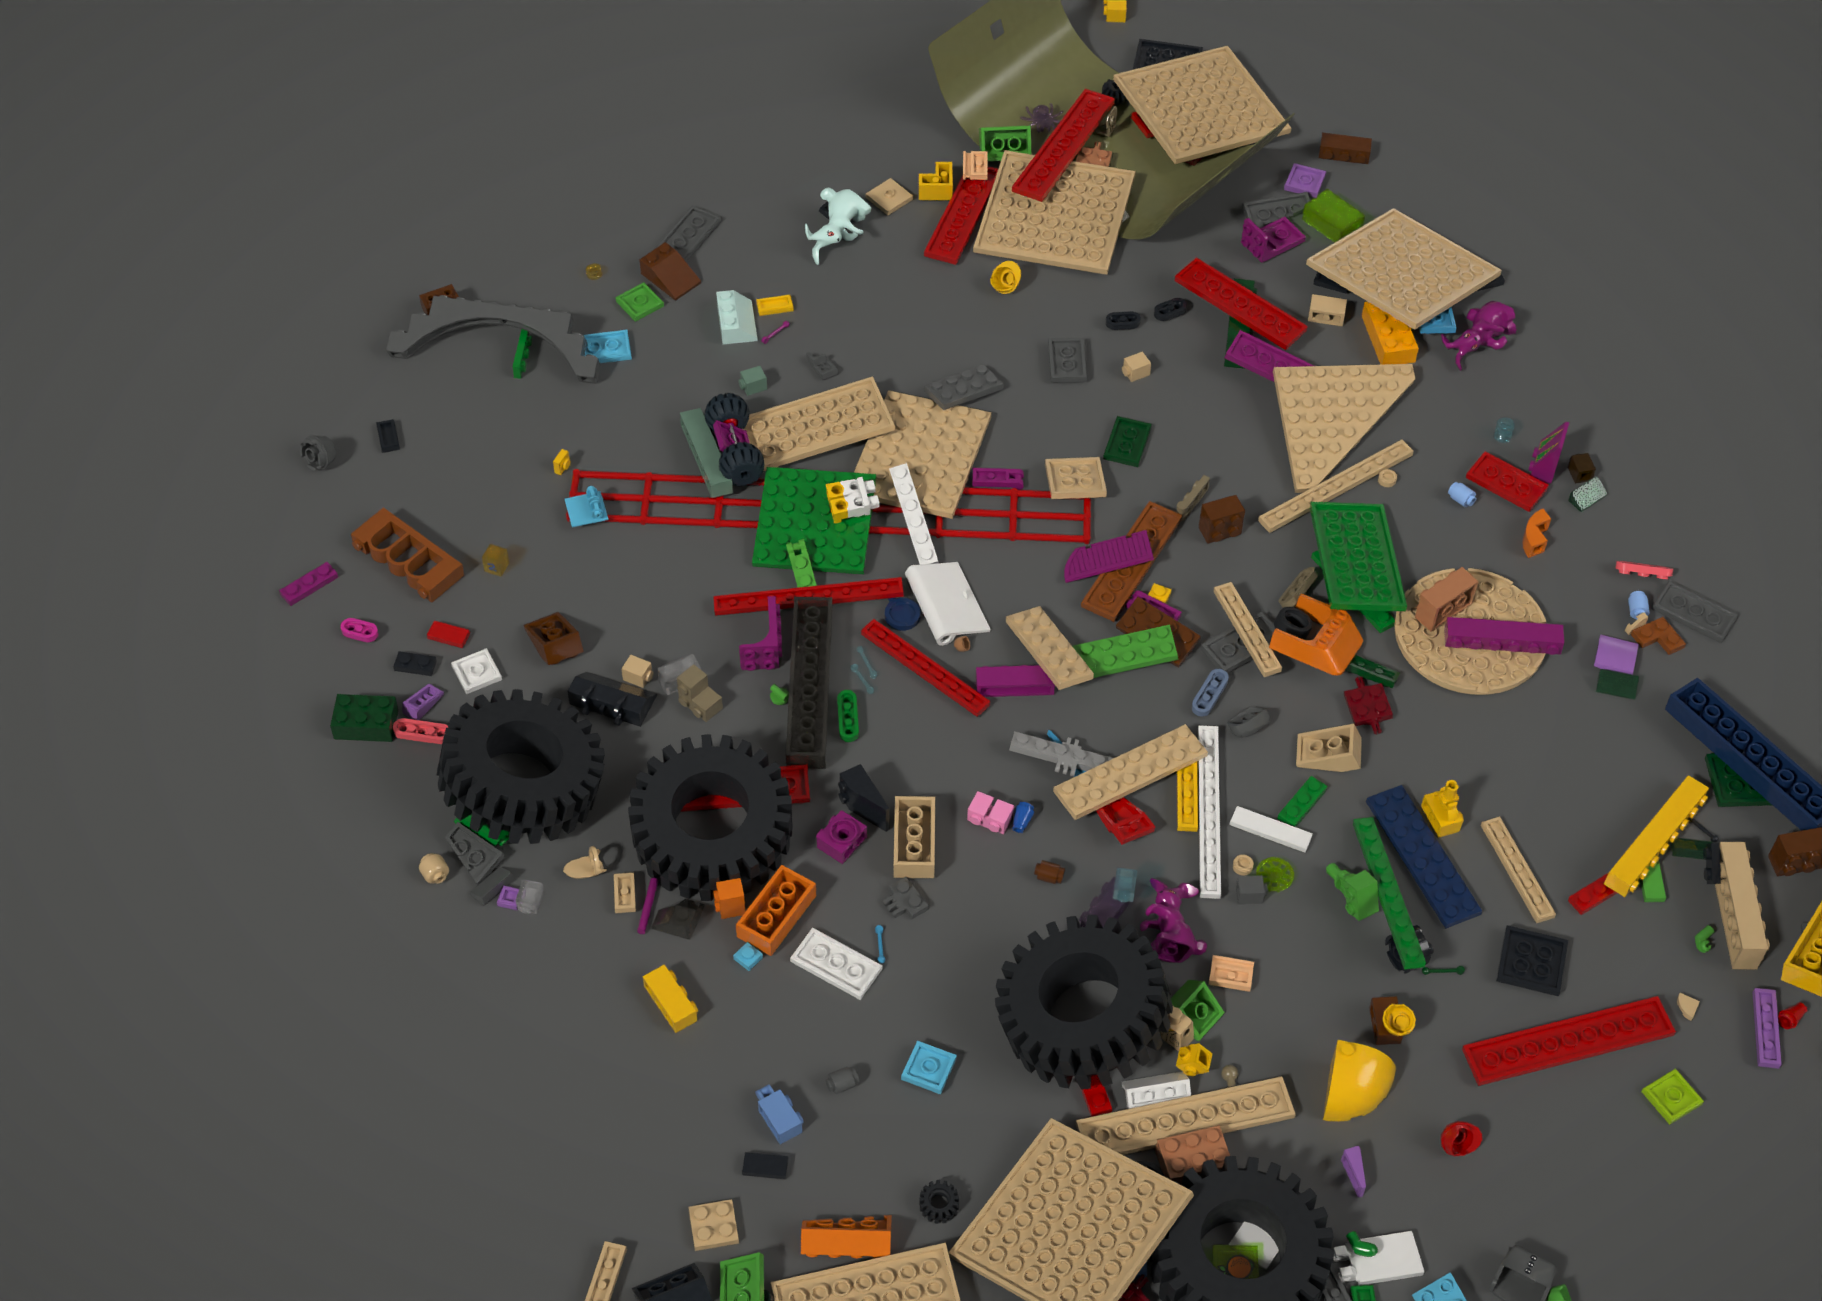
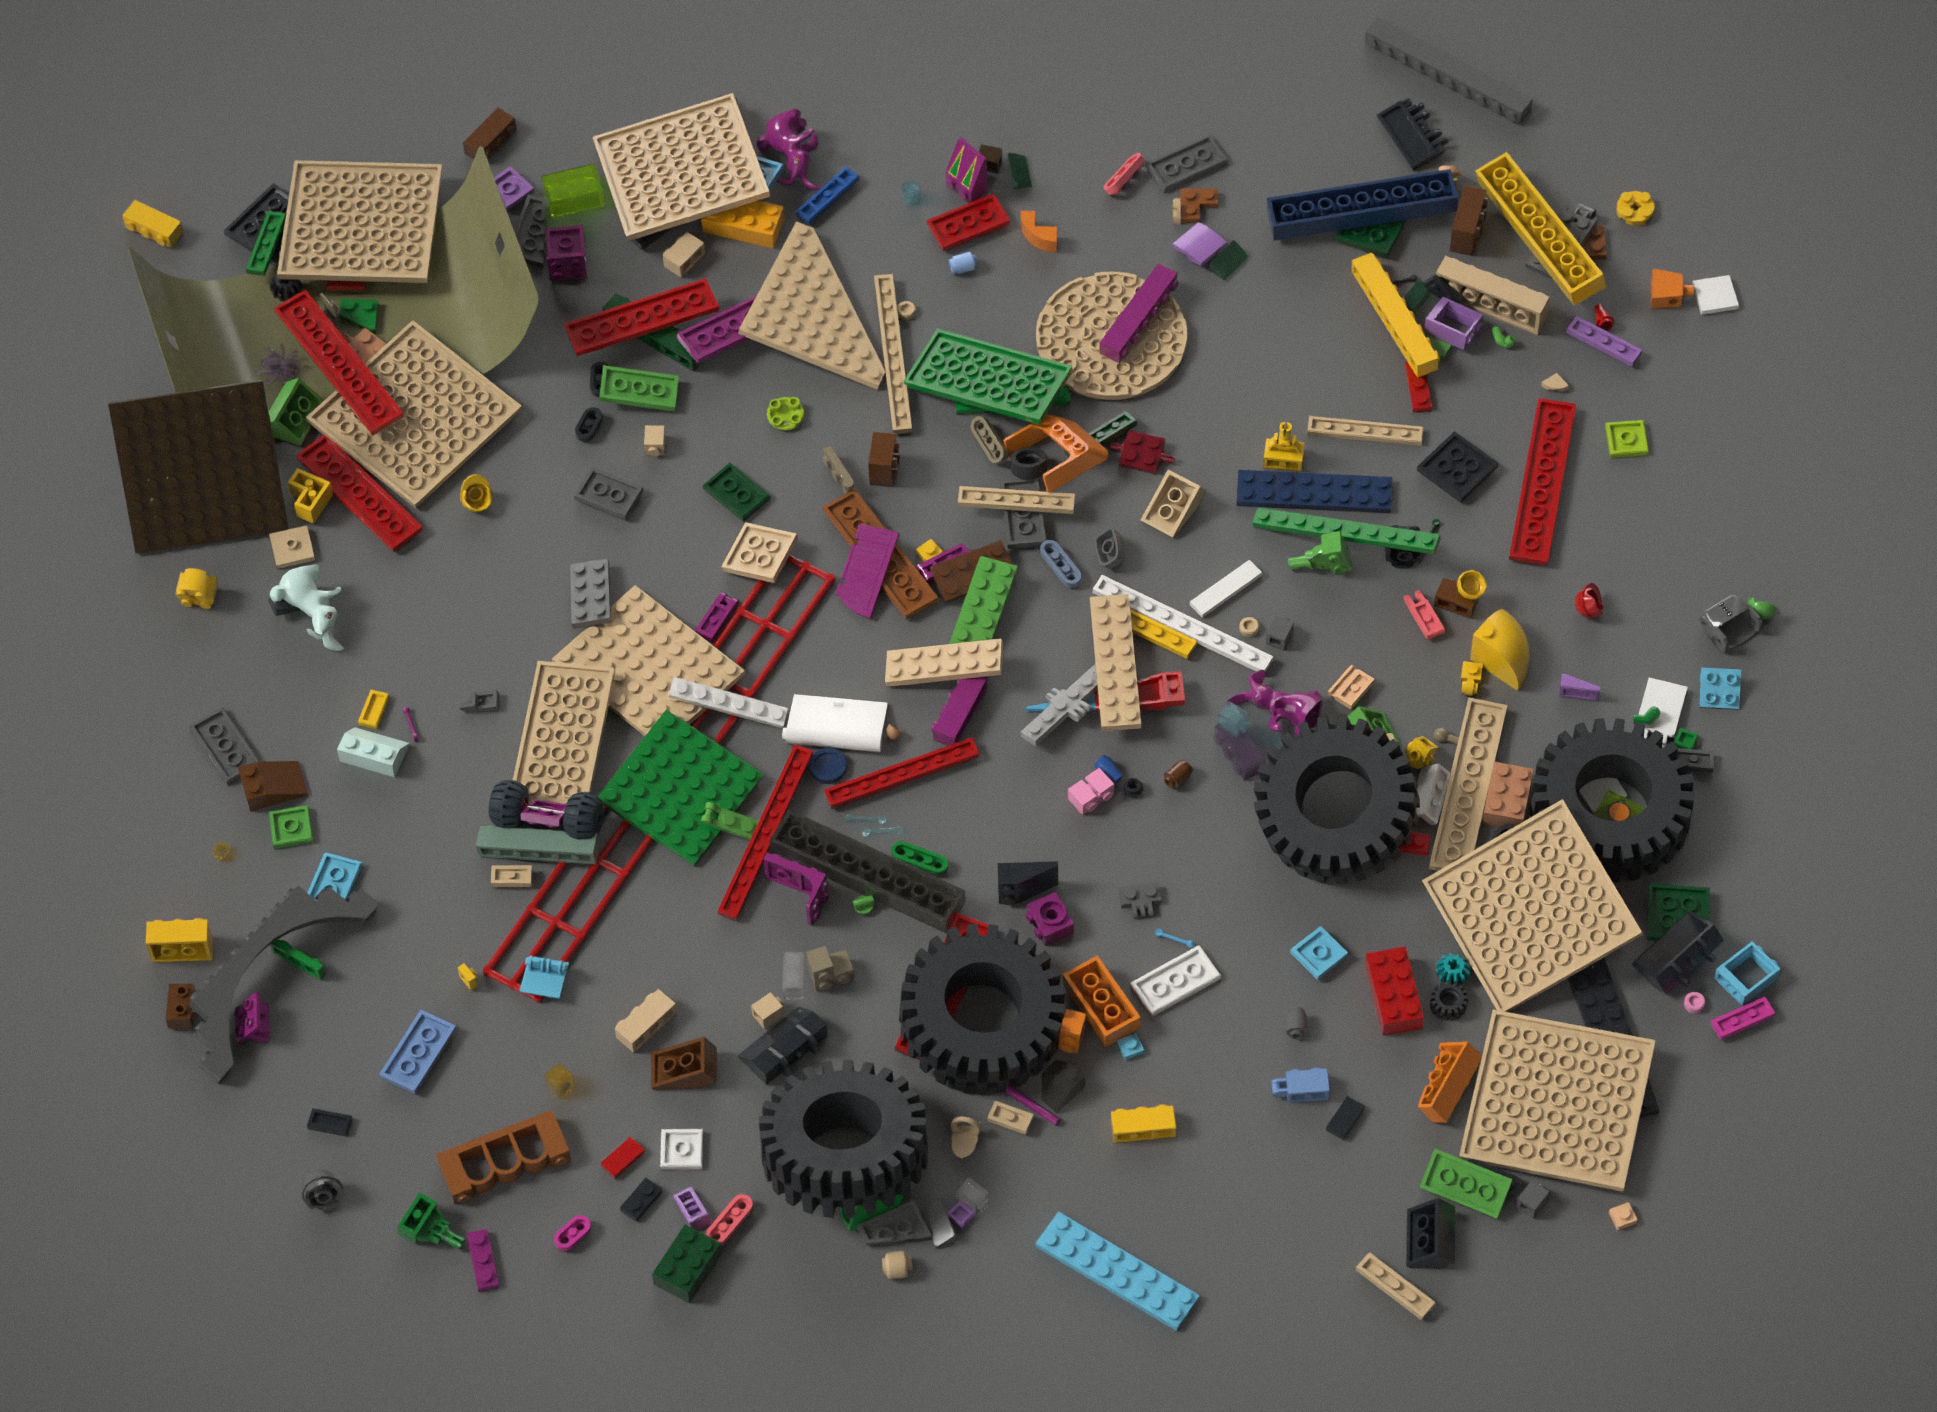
camera: 60 degrees left, 5 degrees up
(320, 530) = (427, 1224): none -> green brick
(452, 351) = (252, 1020): none -> magenta bracket
(477, 461) = (417, 1051): none -> medium blue plate
(494, 274) = (179, 940): none -> yellow brick
(510, 1045) = (1117, 1271): none -> medium azure plate
(583, 593) = (645, 1020): none -> tan brick
(671, 450) = (511, 876): none -> tan plate
(713, 1225) = (1380, 1180): tan plate -> none
(753, 380) = (467, 768): sand green brick -> none
(810, 155) = (196, 588): none -> yellow brick
(851, 499) = (687, 734): white hips -> none
(902, 95) = (198, 466): none -> dark brown plate
(914, 837) = (1087, 860): tan brick -> none
(921, 1147) = (1394, 990): none -> red brick
(966, 1188) = (1450, 962): none -> teal gear
(975, 165) = (310, 451): light nougat plate -> none
(1016, 840) = (1133, 782): none -> black plate
(1126, 145) = (360, 312): none -> green wing
(1128, 63) = (266, 243): none -> green plate
(1177, 334) = (638, 388): none -> bright green plate
(1225, 439) = (785, 413): none -> lime dish
(1275, 873) = (1271, 607): clear neon green wheel -> none
(1302, 802) = (1212, 552): green plate -> none
(1311, 1069) = (1471, 677): none -> yellow plate
(1348, 1002) = (1424, 616): none -> coral hinge
(1446, 598) = (1079, 333): nougat brick -> none
(1458, 377) = (827, 195): none -> blue plate
(1638, 604) = (1159, 199): light blue brick -> none
(1685, 871) = (1458, 313): none -> medium lavender window

